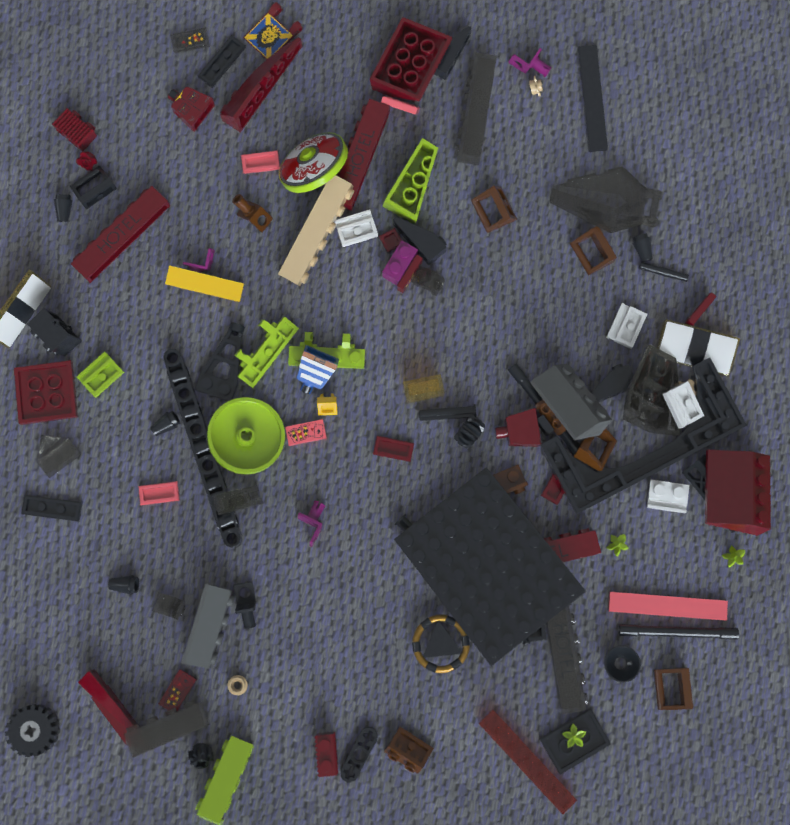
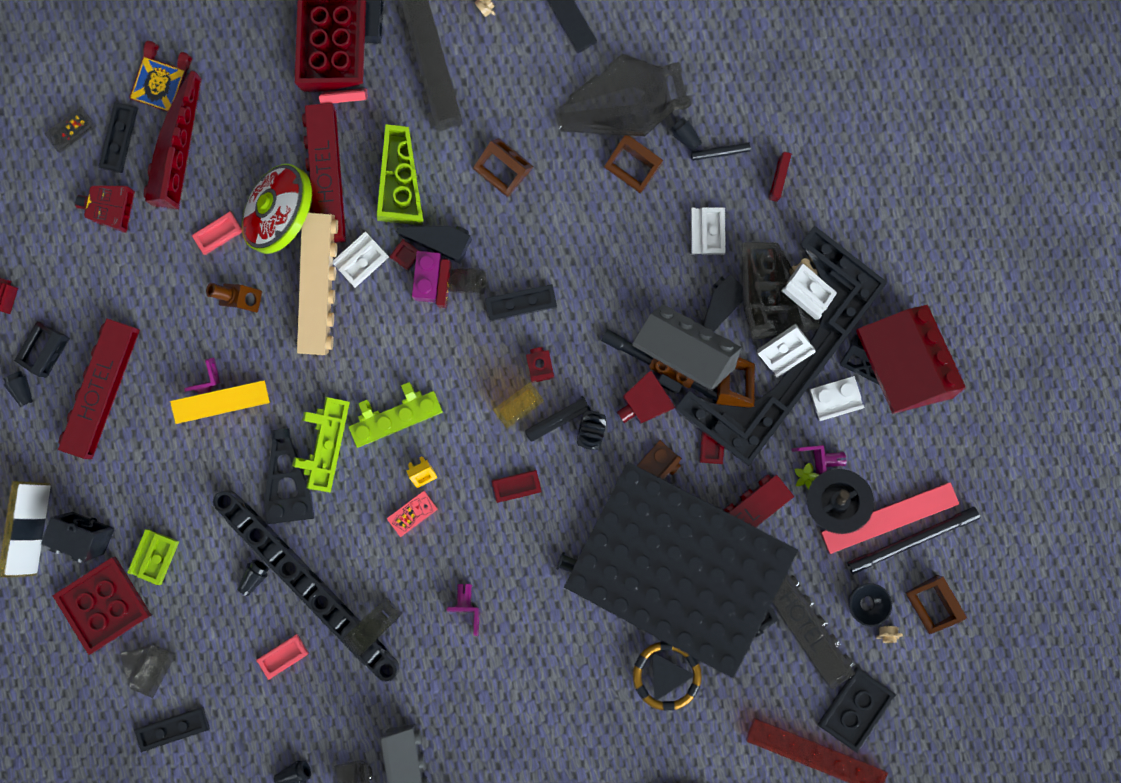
camera: 25 degrees left, 5 degrees up
(86, 160) = (19, 322): dark red plate -> none
(245, 435) = (347, 550): lime dish -> none
(246, 605) = (436, 734): black bracket -> none
(315, 369) = (389, 439): torso -> none
(453, 373) = (543, 373): none -> dark red brick
(461, 314) = (521, 302): none -> black plate
(574, 736) = (854, 706): lime plant -> none
(626, 694) = (889, 634): none -> tan plate
(635, 536) = (824, 460): none -> magenta bracket
(635, 572) = (840, 501): none -> black piece
(645, 441) = (786, 350): none -> white plate
(693, 345) = (792, 218): white slope -> none
(734, 556) = (936, 430): lime plant -> none

